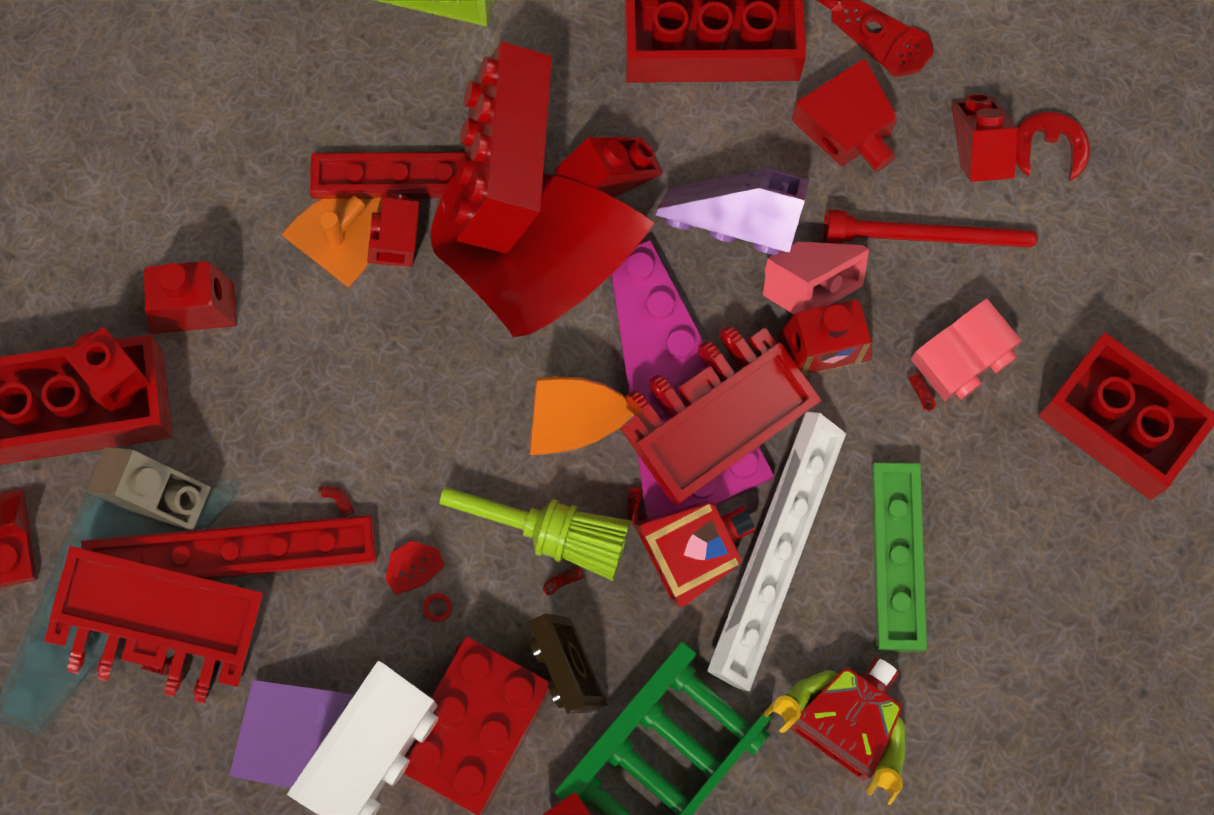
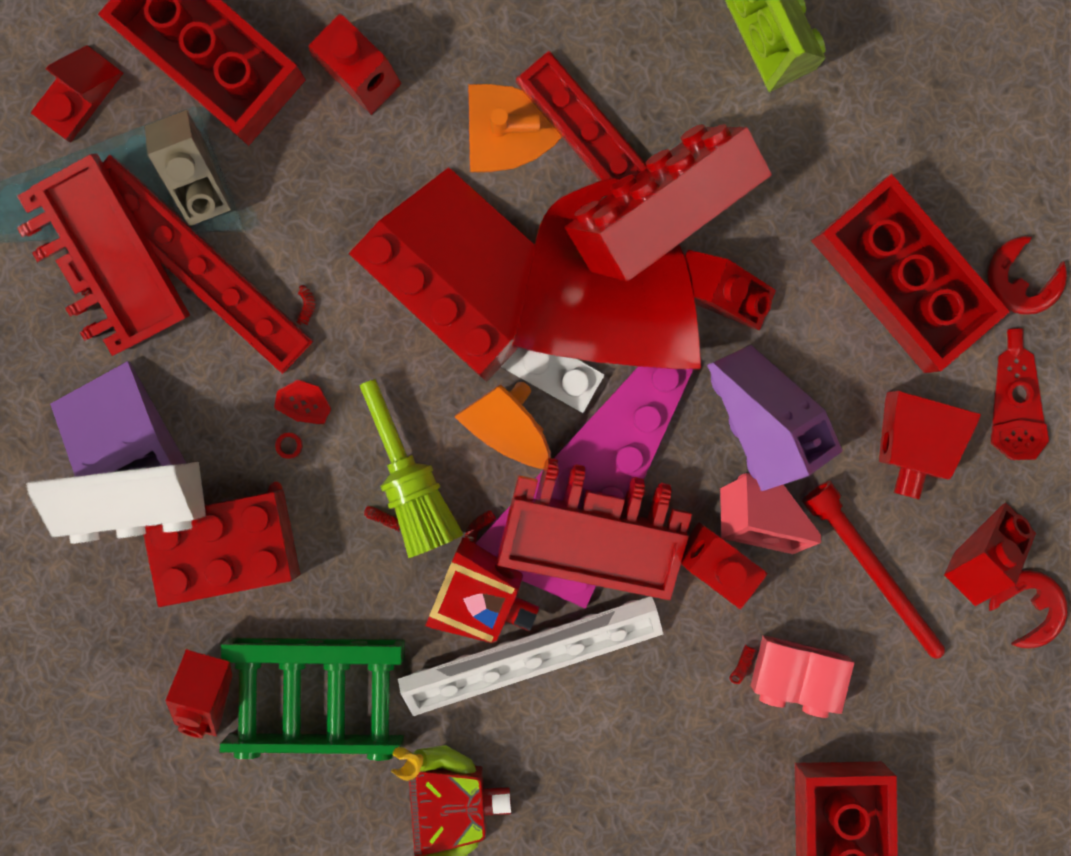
camera: 55 degrees right, 15 degrees up
(106, 368) = (236, 58): red brick -> none
(394, 232) = (538, 169): red brick -> none
(417, 355) = (453, 268): none -> red slope
(541, 355) = (556, 375): none -> white plate
(572, 676) = (315, 580): dark brown plate -> none
(898, 557) = (599, 746): bright green plate -> none

